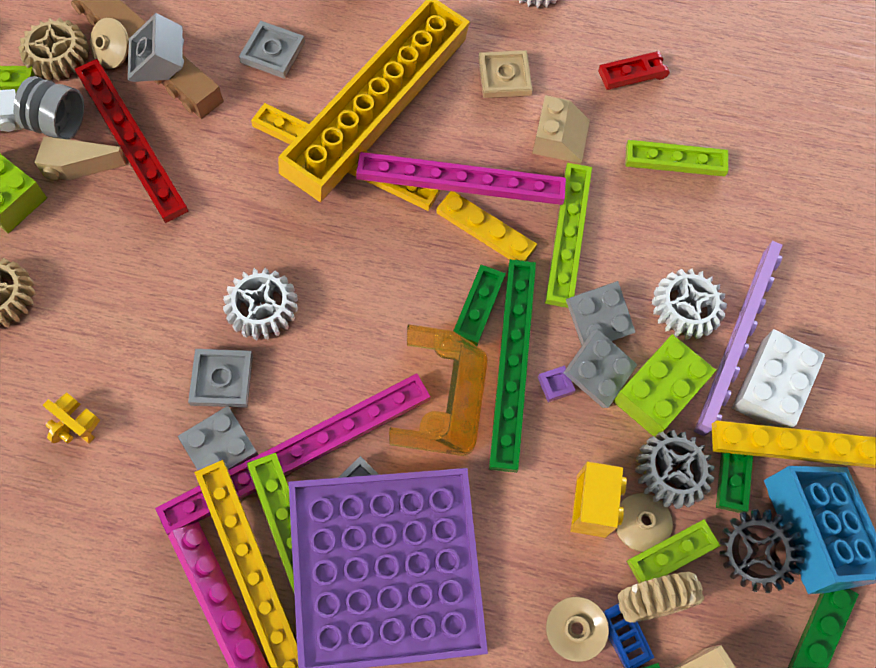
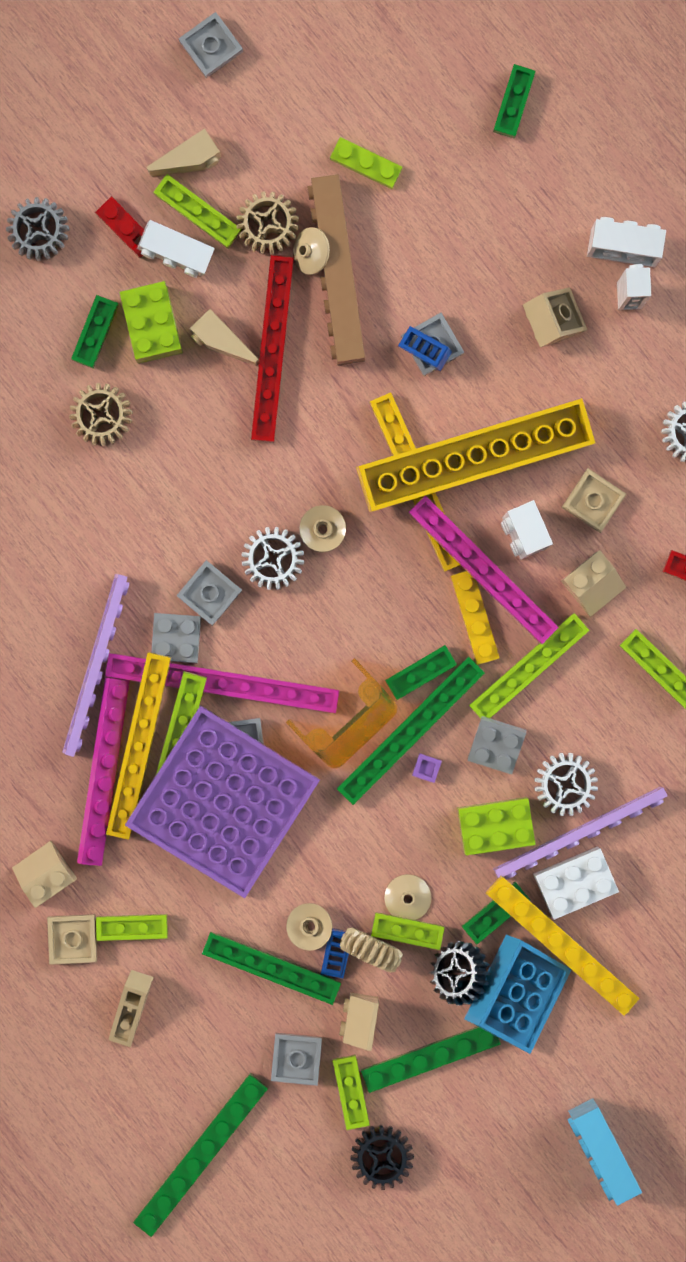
camera: 45 degrees right, 20 degrees up
(48, 108) = (226, 282): light grey wheel -> none
(62, 409) = (97, 559): yellow hips -> none
(153, 543) = (93, 674): none -> lavender plate
(155, 50) = (336, 296): light grey slope -> none
(275, 40) = (441, 359): none -> blue slope
(286, 237) = (320, 516): none -> tan dish
(472, 115) = (526, 530): none -> white brick
(598, 500) = (384, 865): yellow piece -> none
(600, 368) = (463, 781): light grey plate -> none
(661, 449) = (454, 872): light grey gear -> none

